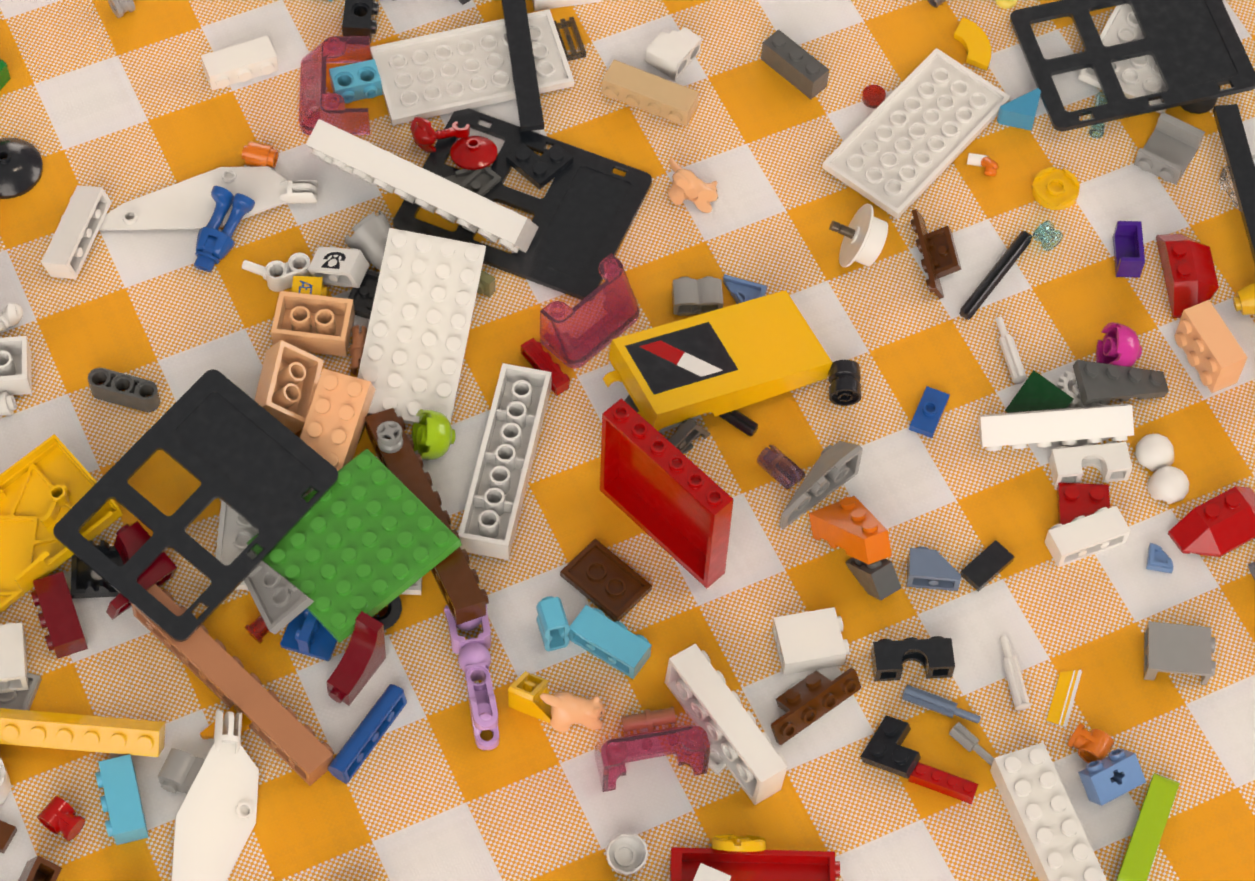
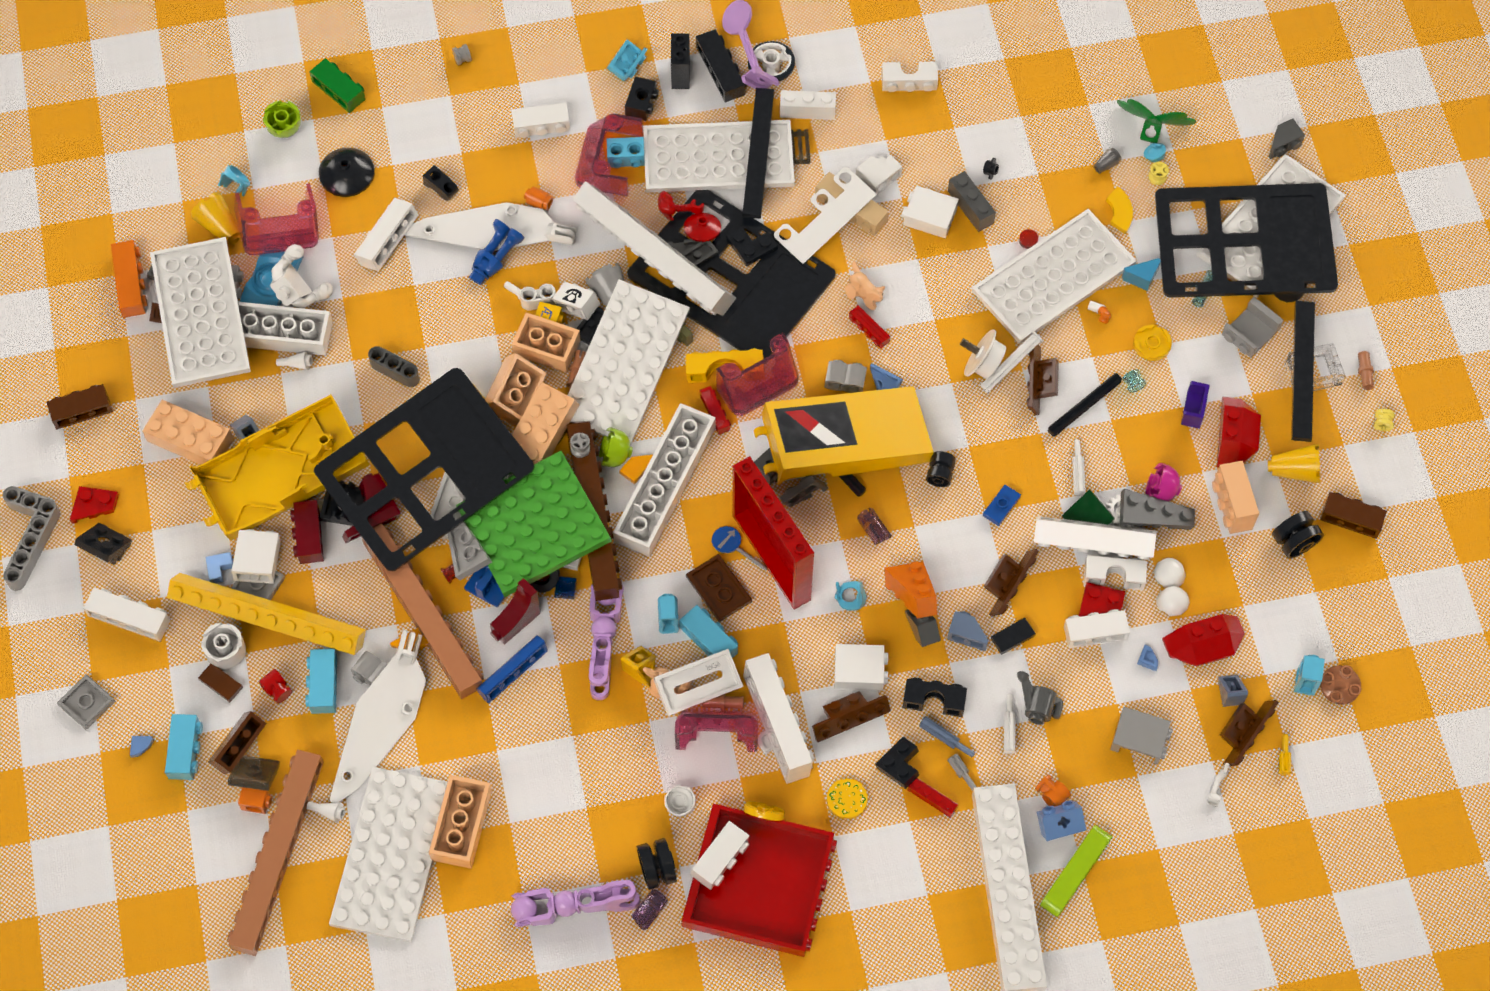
camera: 15 degrees right, 5 degrees up
(130, 159) = (440, 183): none -> black leg
(412, 619) = (565, 588): none -> plate
(464, 454) = (635, 467): none -> light orange tile
(516, 314) = (701, 365): none -> yellow arch
(592, 731) = (668, 681): none -> white piece
(603, 520) = (728, 540): none -> blue piece
(631, 114) = (830, 220): none -> white piece
(710, 232) = (869, 327): none -> red piece
(747, 85) = (930, 211): none -> white brick
(783, 566) = (860, 599): none -> medium azure piece
(807, 22) = (990, 168): none -> black plate
(830, 472) = (911, 537): light grey wedge -> none
(836, 807) = (847, 799): none -> yellow tile
(896, 239) = (1019, 354): none -> white axle
(961, 498) = (1006, 578): none -> reddish brown bracket
(1044, 635) = (1039, 701): none -> dark grey piece
(1064, 697) = (1044, 751): yellow sticker -> none

